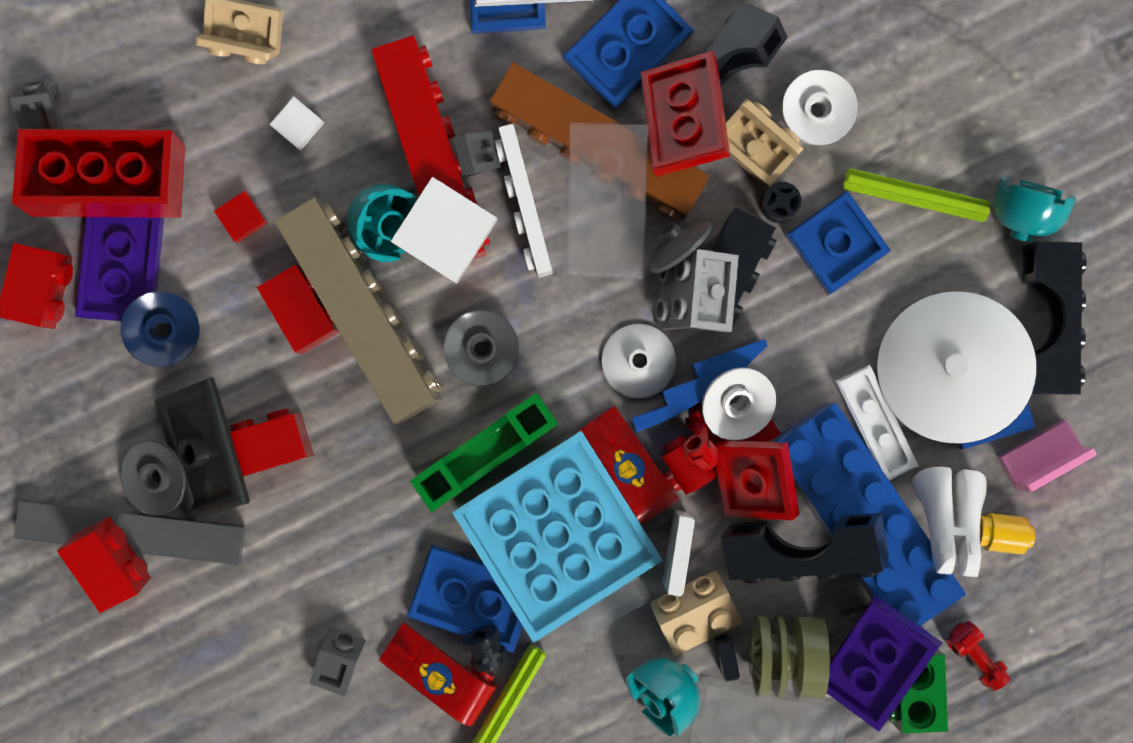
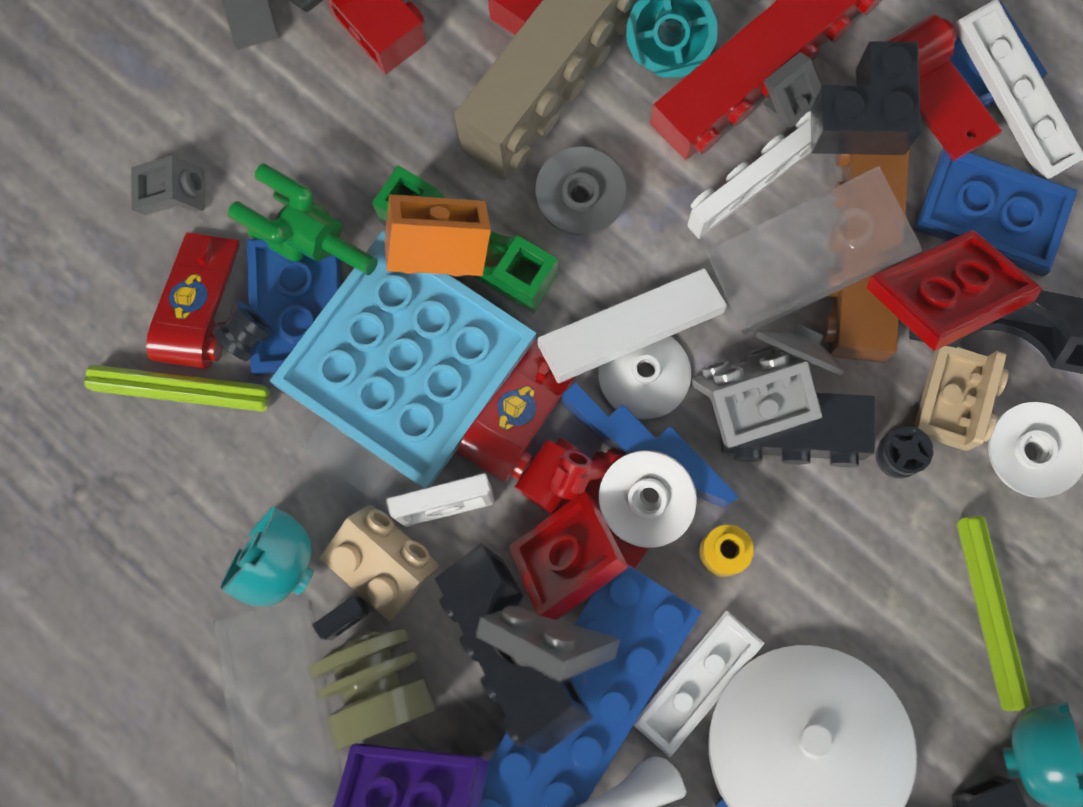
camera: 70 degrees right, 10 degrees down
(420, 572) = (300, 225): none -> green plant
(444, 230) = (693, 89): white tile -> none
(481, 476) = (436, 235): none -> orange brick
(522, 41) = (945, 97): none -> red door
(530, 103) = (878, 112): none -> black brick
(602, 356) = (631, 325): none -> white tile
(786, 364) = (712, 558): none -> yellow brick
(818, 523) = (546, 643): none -> dark grey wing
(837, 243) = (890, 543): blue tile -> none

